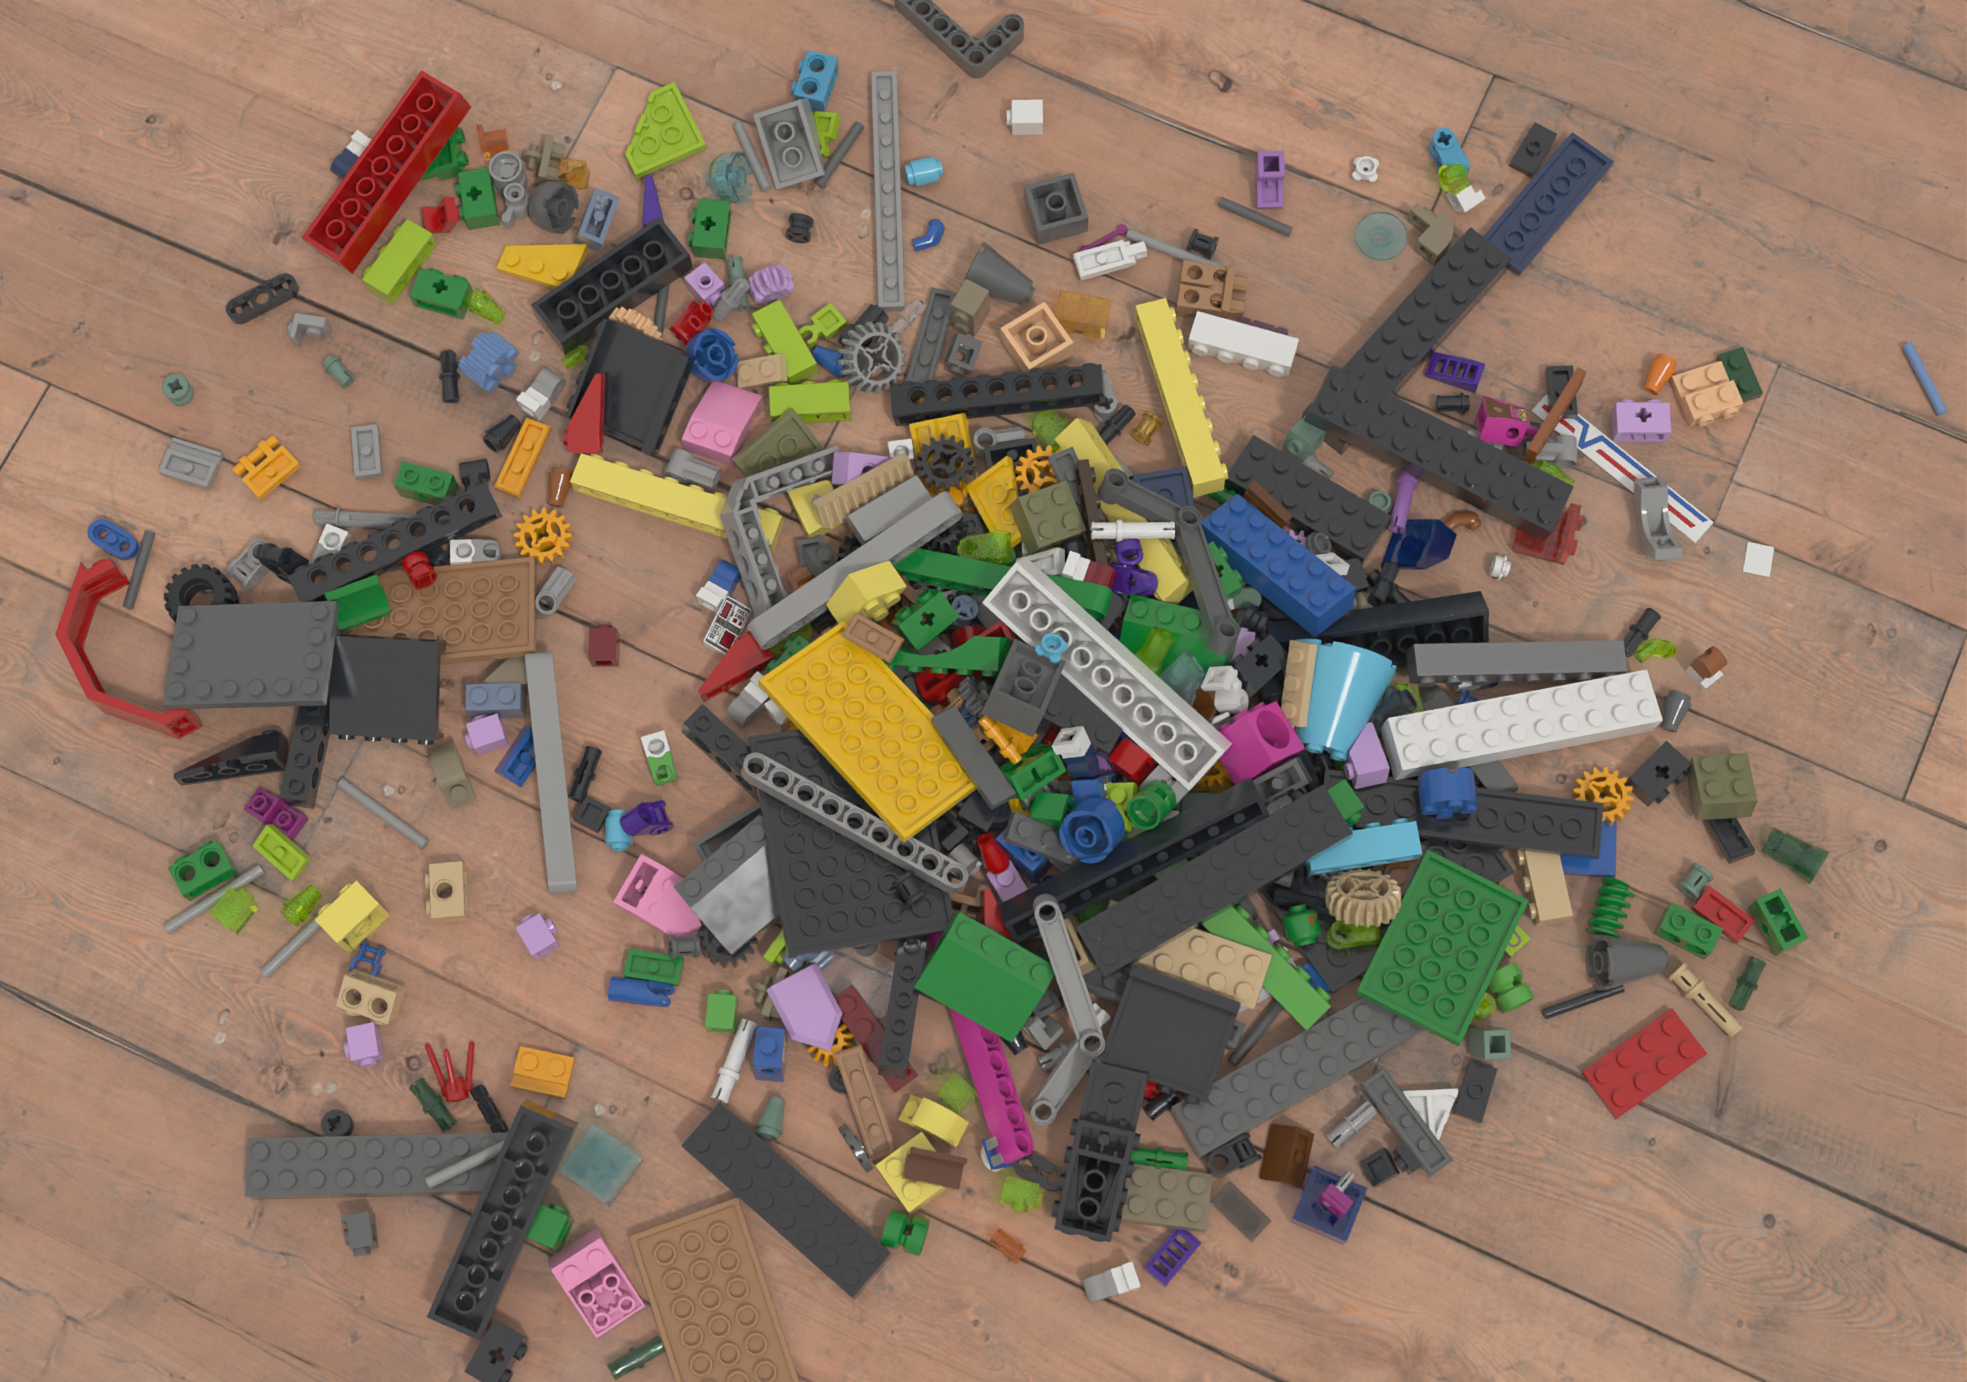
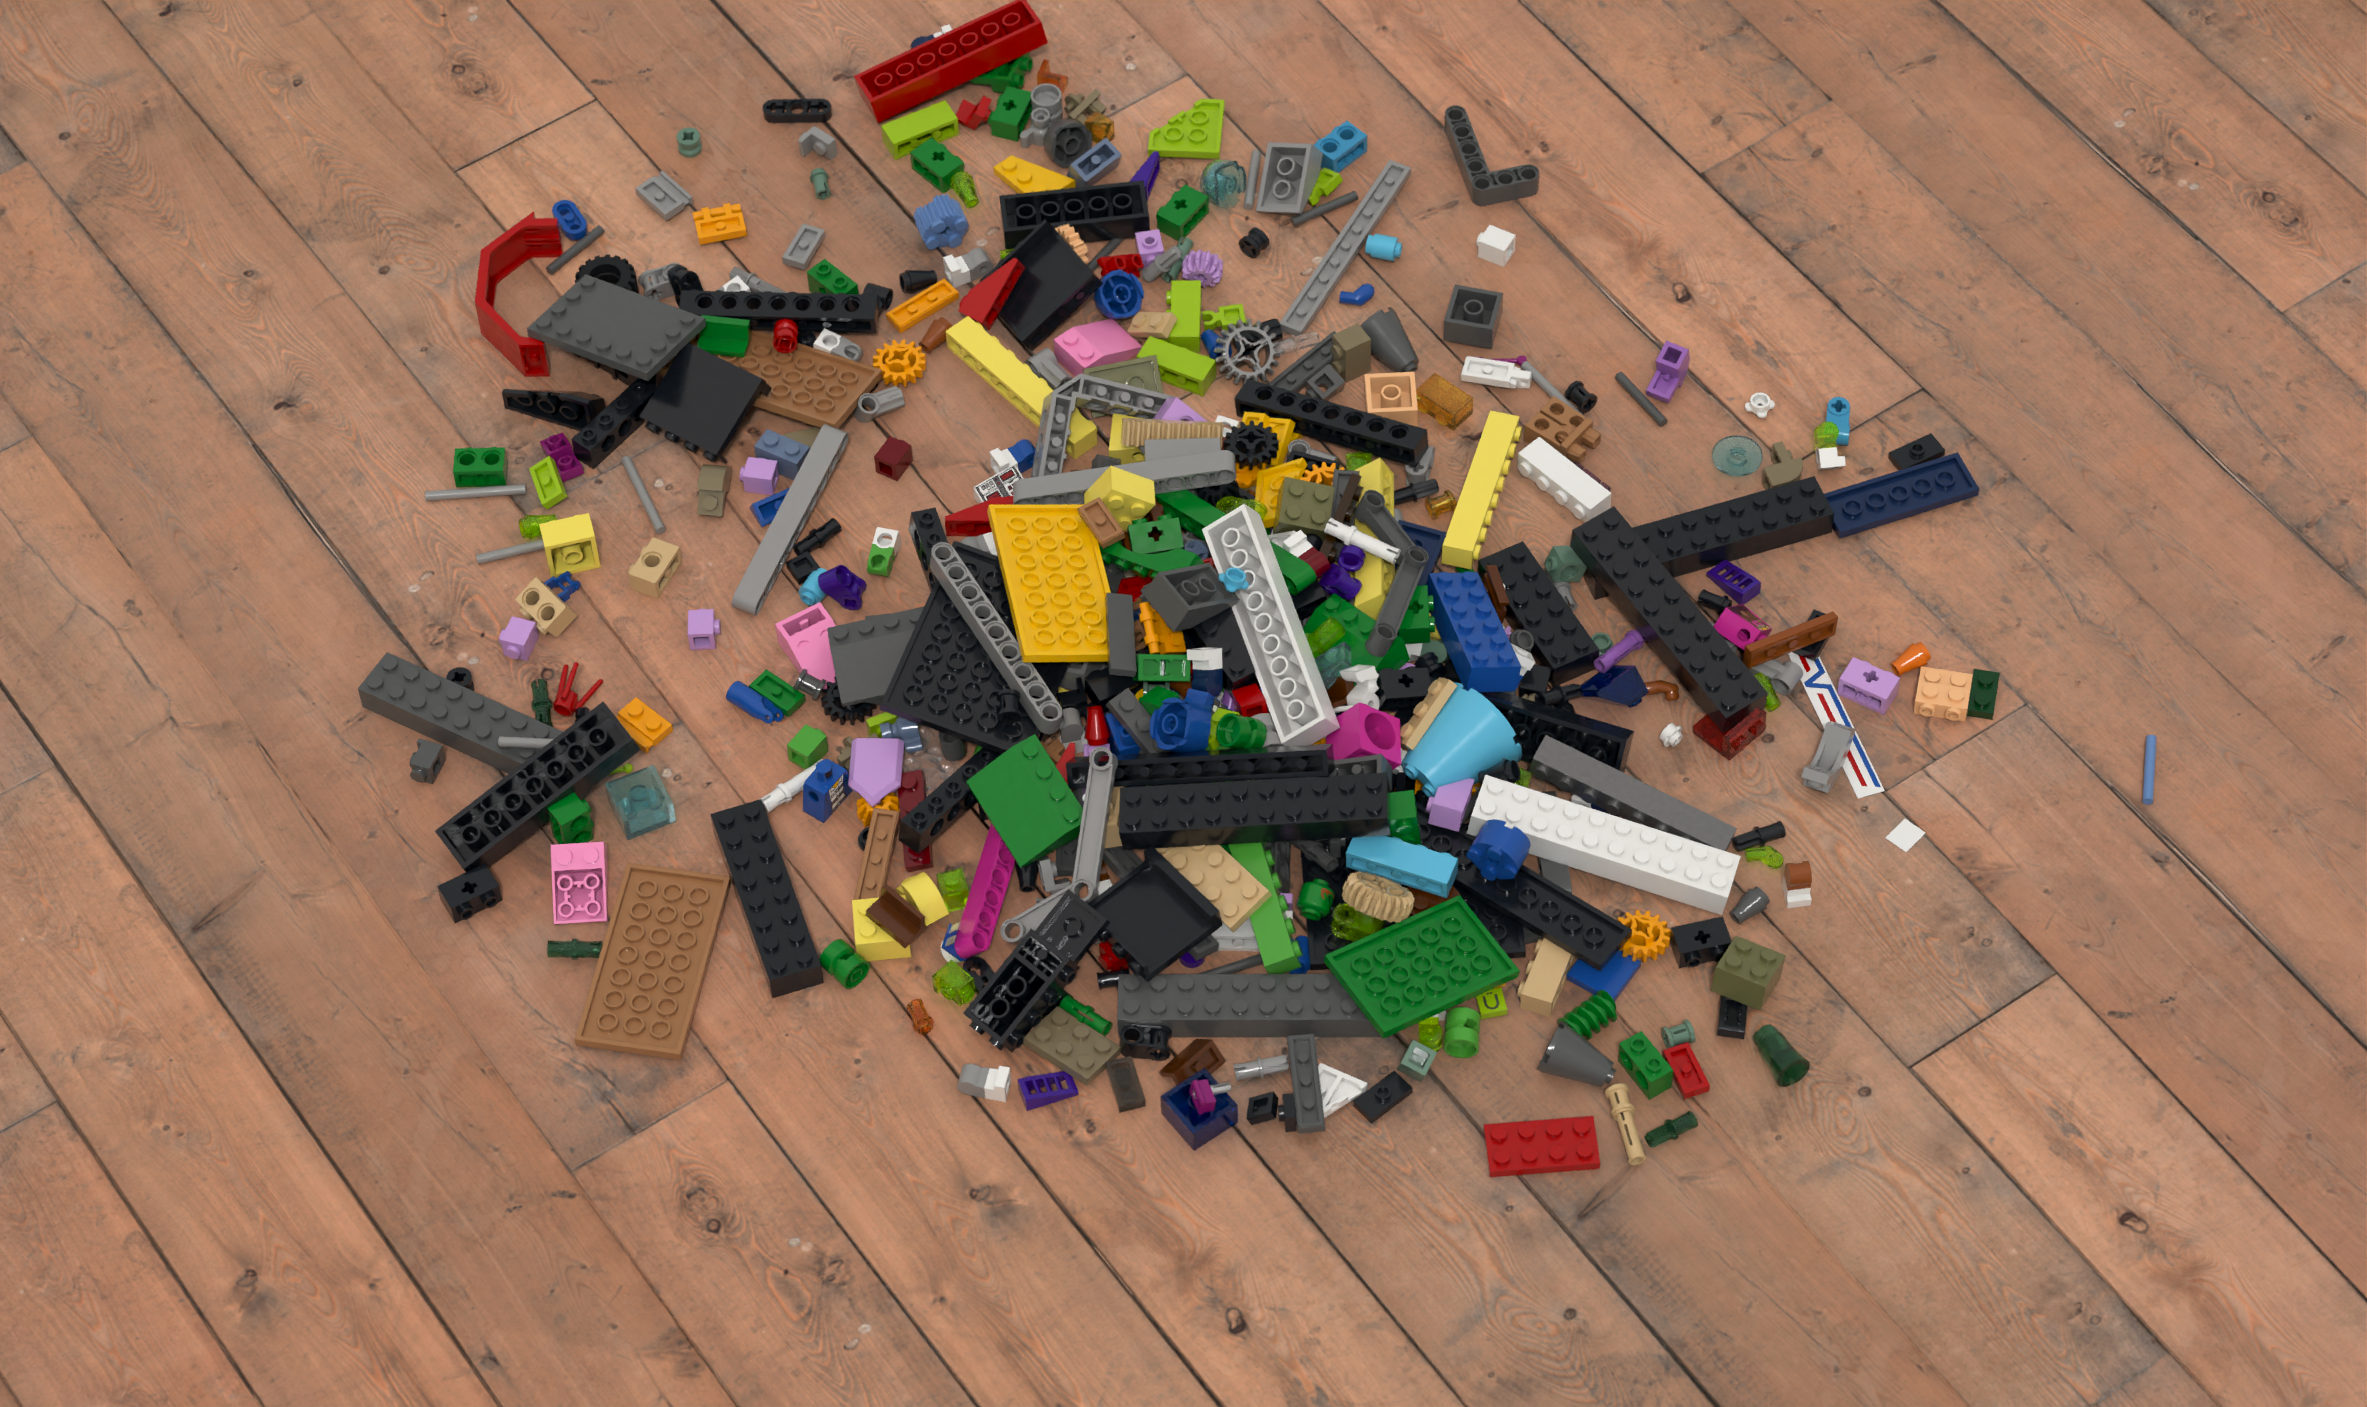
camera: 30 degrees right, 20 degrees down
(234, 909) = (485, 504): clear neon green brick -> none
(449, 377) = (903, 225): black axle -> none
(771, 1120) = (794, 839): sand green cone -> none
(856, 1147) = (846, 884): dark grey wheel -> none
(1580, 1001) = (1523, 1077): black bar -> none
(1778, 922) = (1727, 1093): green brick -> none

